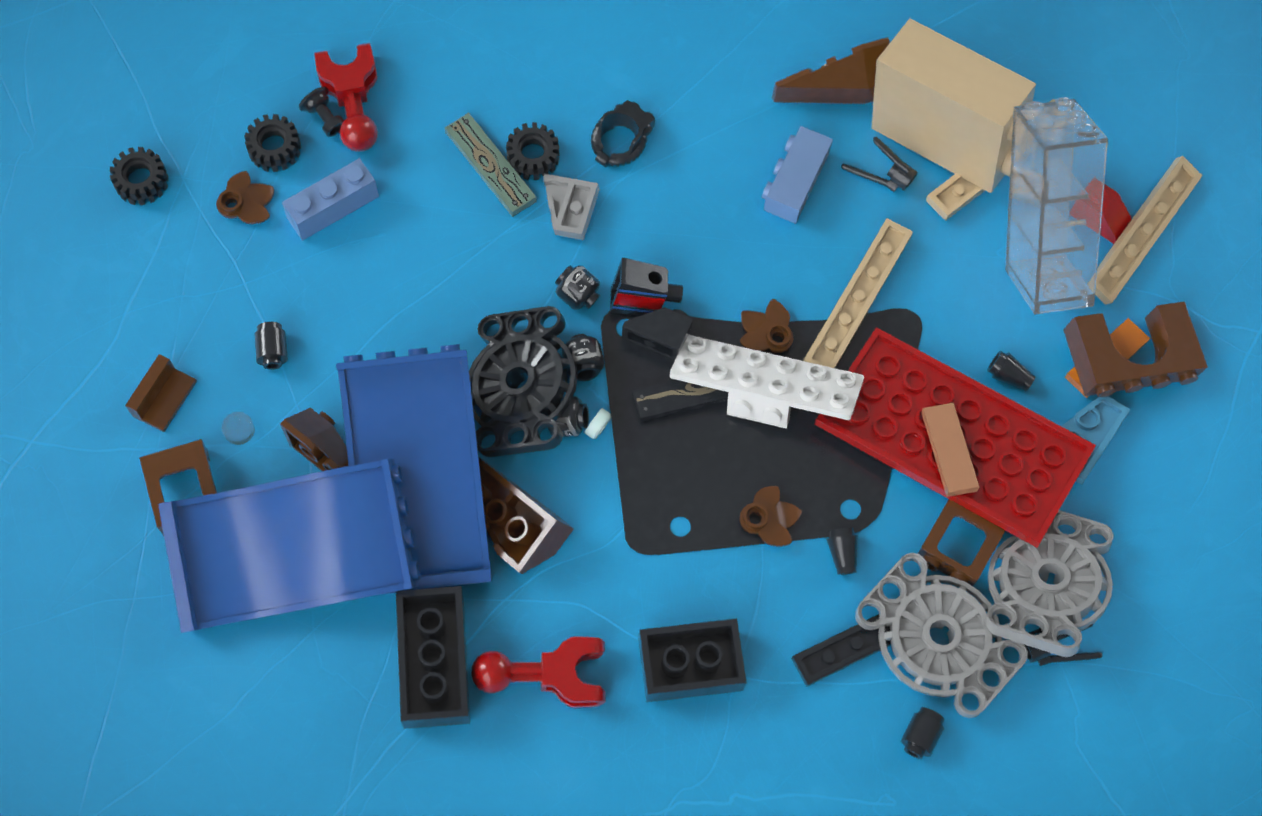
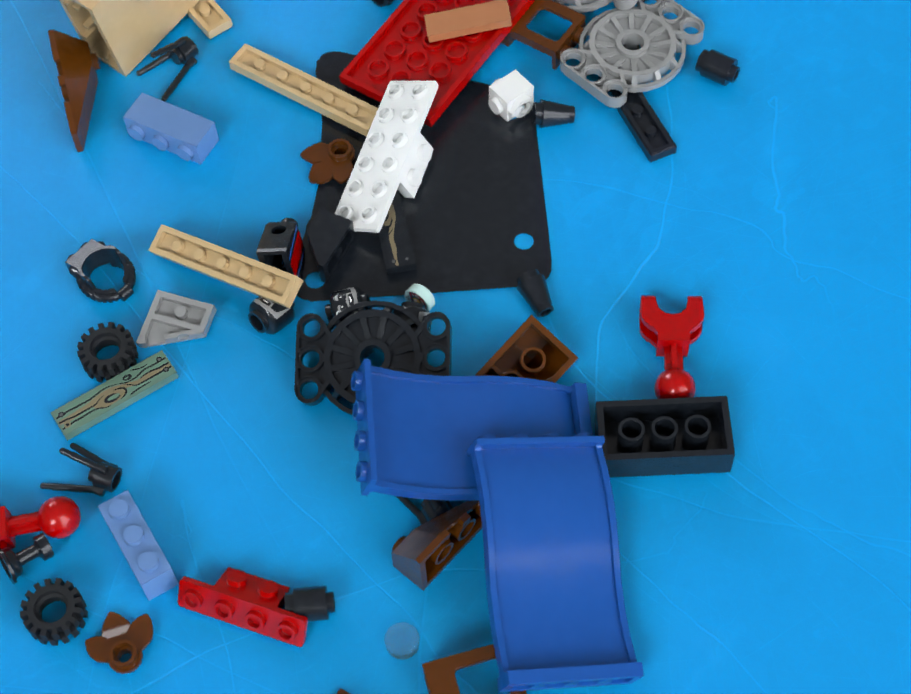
camera: 80 degrees left, 10 degrees down
(278, 296) = (245, 603): none -> red bracket
(402, 164) = (102, 474): none -> black plant
(608, 536) = (535, 292): none -> black cone
(619, 238) = (226, 266): none -> tan plate
(691, 660) = (661, 225): black brick -> none
(774, 515) = (518, 166): reddish brown plate -> none
(861, 504) = (511, 96): none -> white brick

